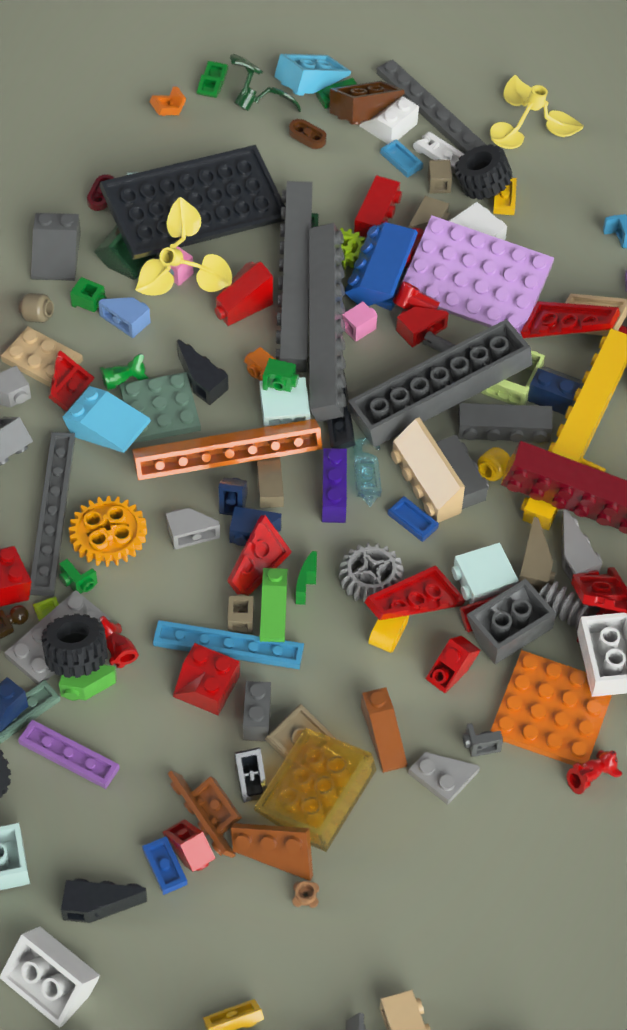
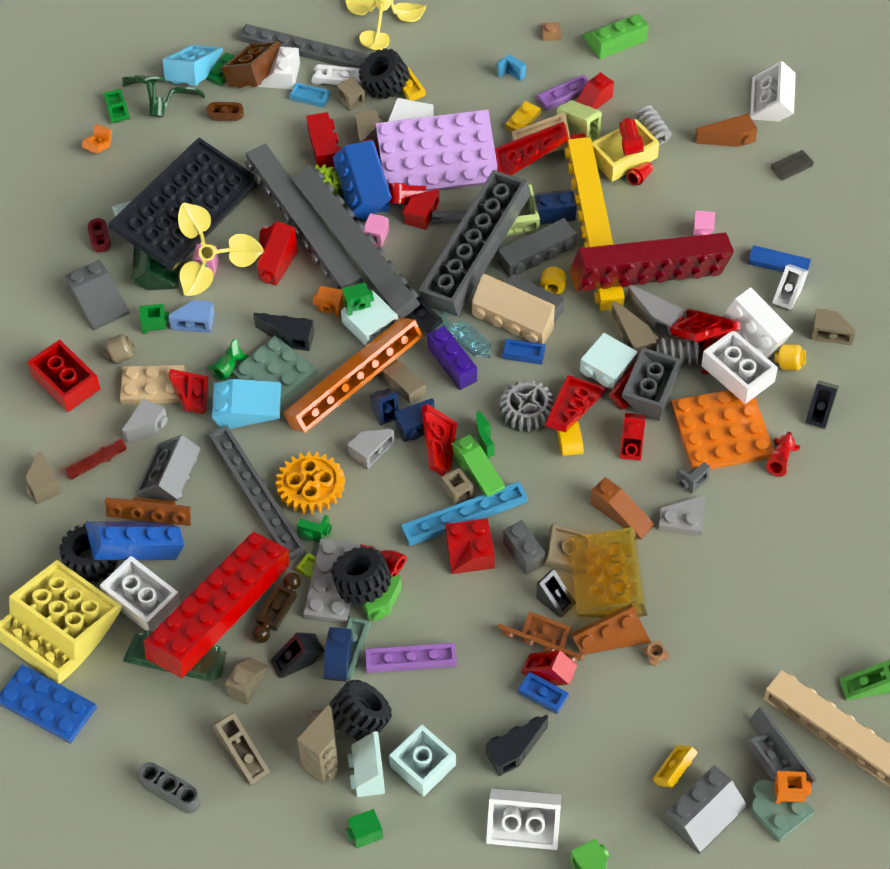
camera: 30 degrees left, 0 degrees up
(596, 285) = (523, 116): none -> yellow plate

